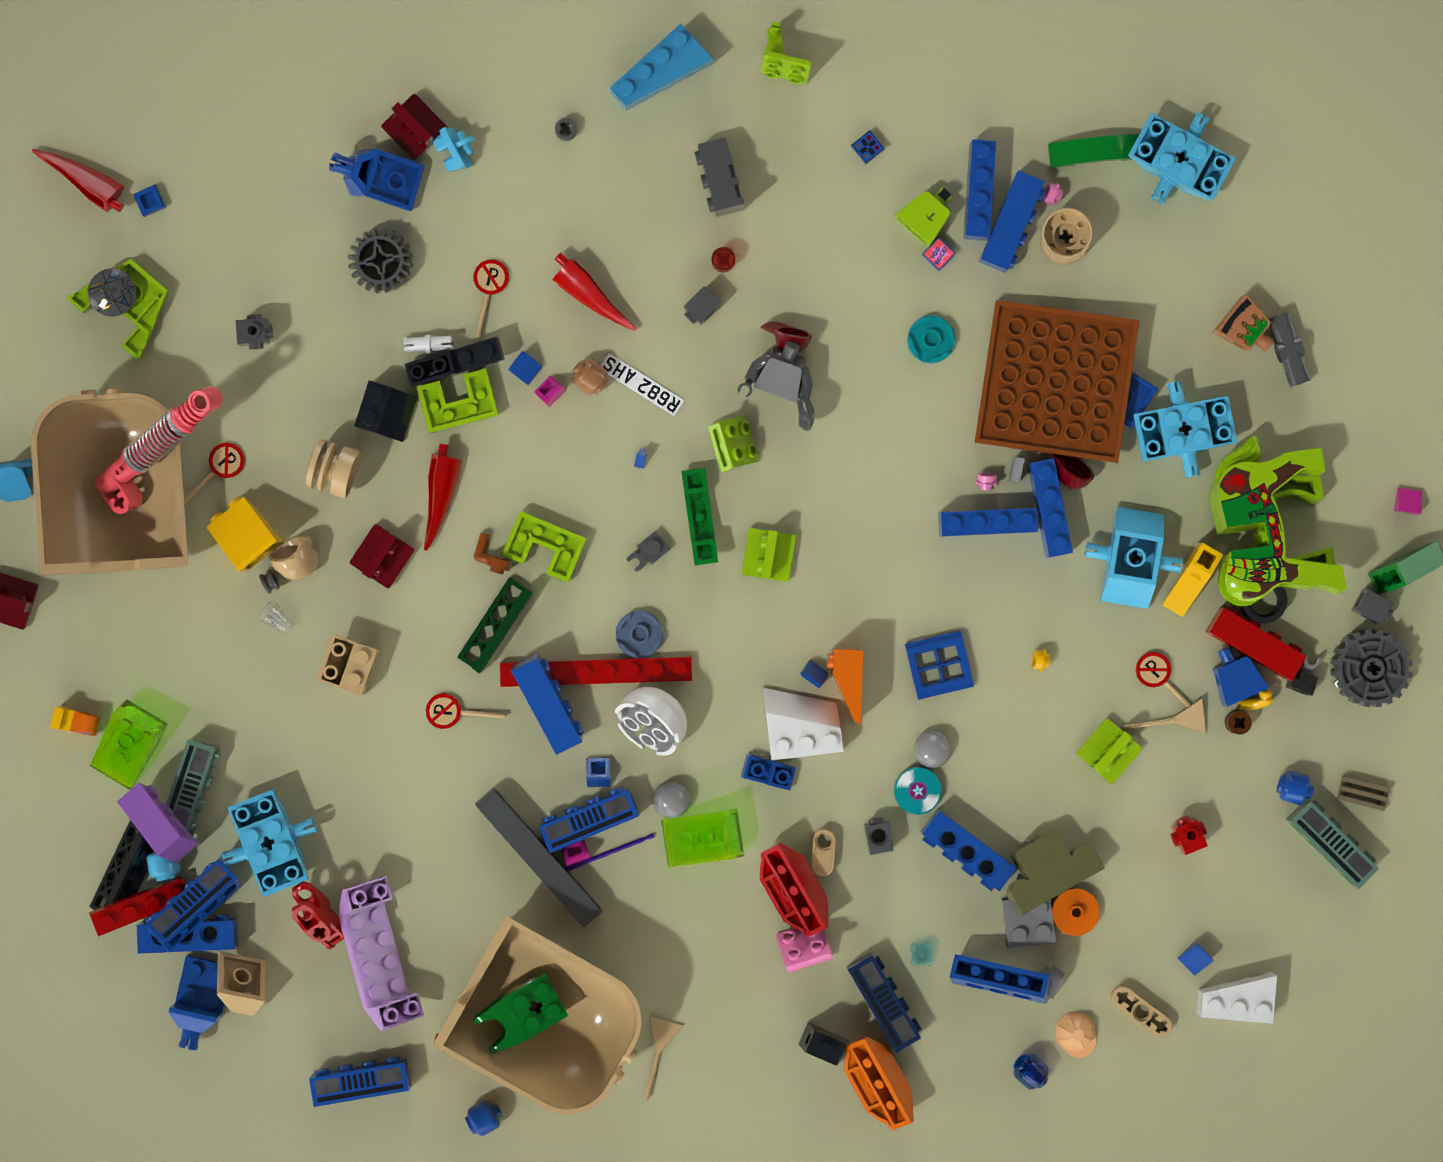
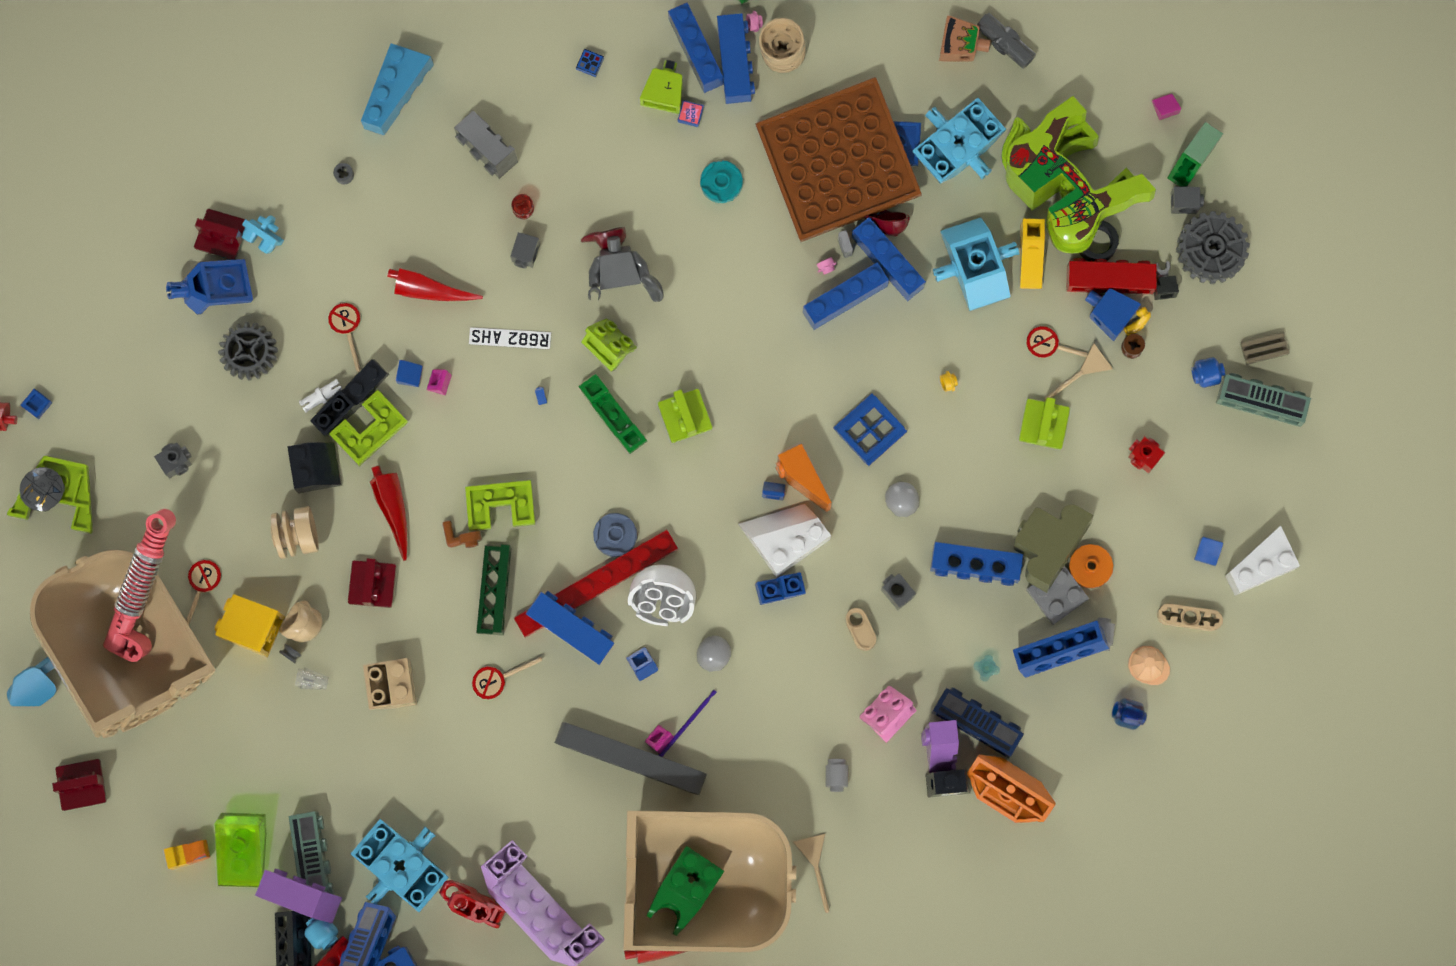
camera: 30 degrees left, 10 degrees down
(588, 820) = (655, 704): brick -> none
(590, 377) = (465, 352): medium nougat head -> none
(651, 548) = (588, 462): dark grey plate -> none
(702, 838) = (755, 669): clear neon green slope -> none
(724, 978) = (836, 775): none -> light grey brick
(777, 64) = (487, 33): lime plate -> none
(794, 889) = (852, 670): red wedge -> none
(837, 1006) = (941, 745): none -> medium lavender wedge
(917, 790) = (909, 538): teal tile -> none

